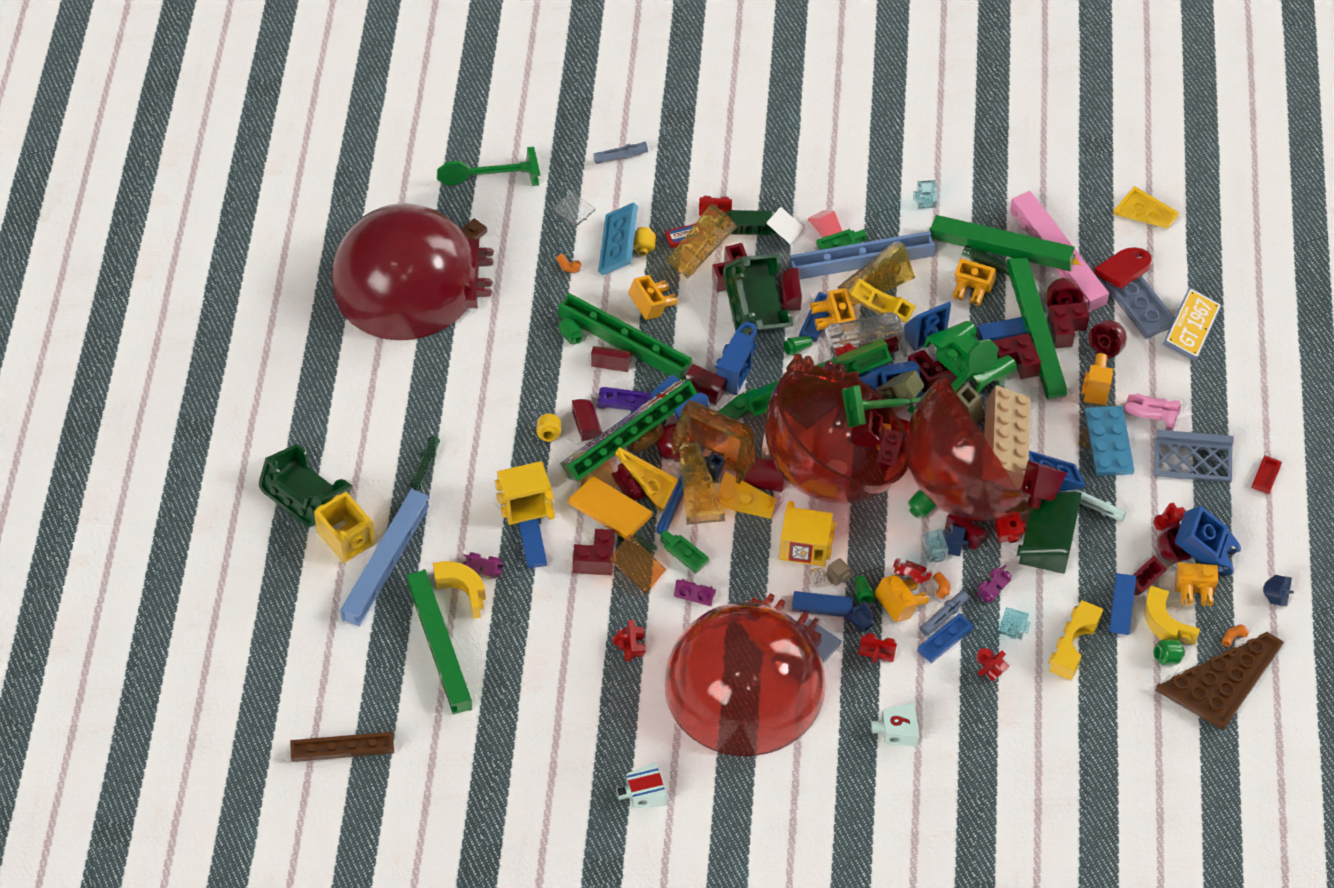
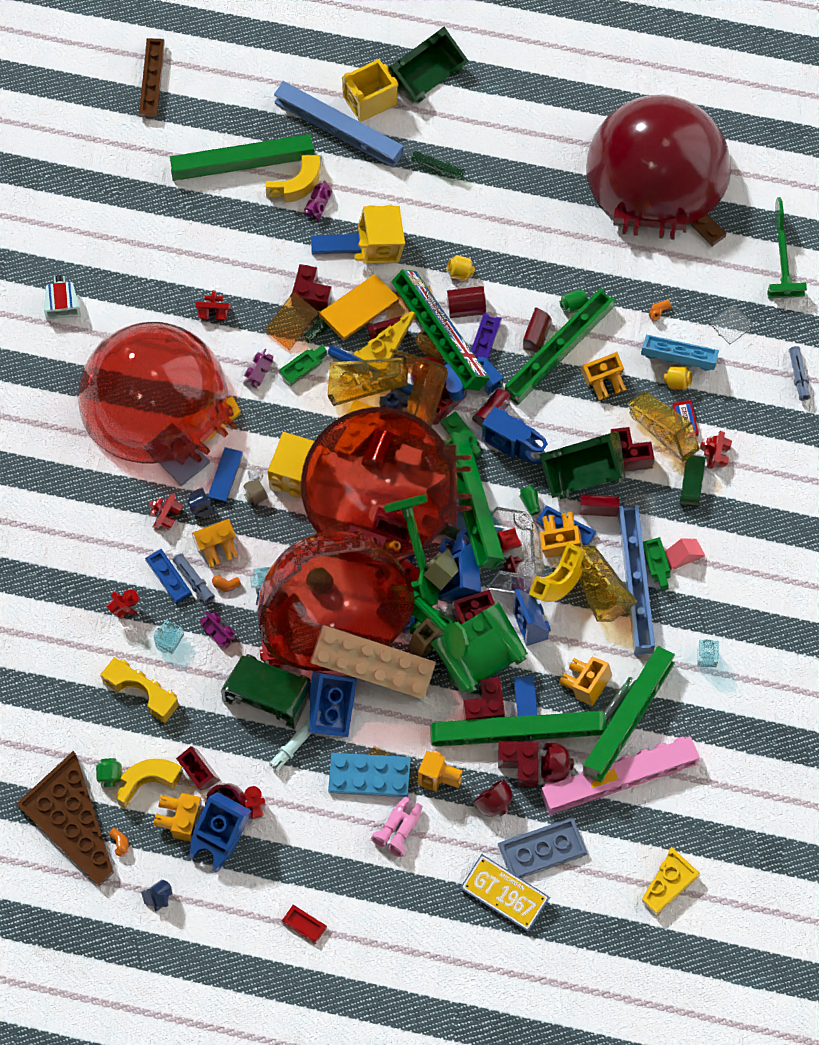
camera: 100 degrees right, 10 degrees up
(785, 225) = (683, 511): white sticker -> none
(863, 590) = (232, 511): green cone -> none
(898, 725) = (79, 515): light aqua torso -> none
(912, 569) = (231, 553): red plate -> none
(1041, 482) = (304, 676): dark red torso -> none
(1122, 604) = (167, 737): blue tile -> none
(1125, 266) = (589, 839): red tile -> none
(1193, 440) = (353, 853): sand blue fence -> none

